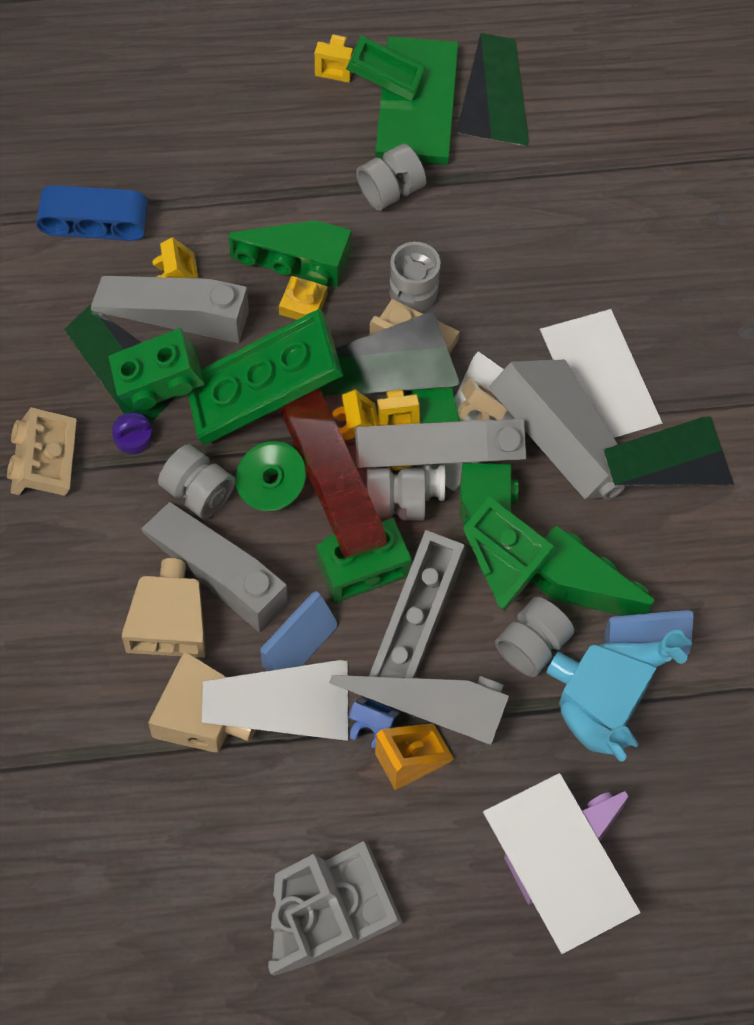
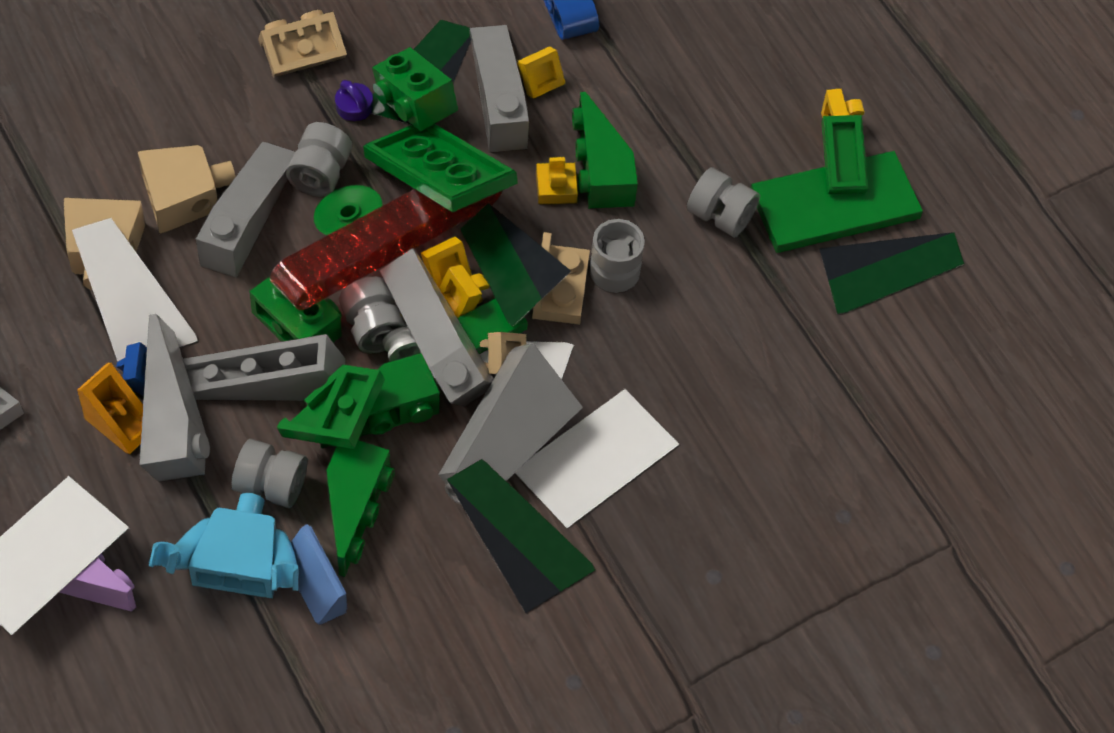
camera: 65 degrees right, 5 degrees down
(299, 635) = (201, 289): medium blue slope -> none

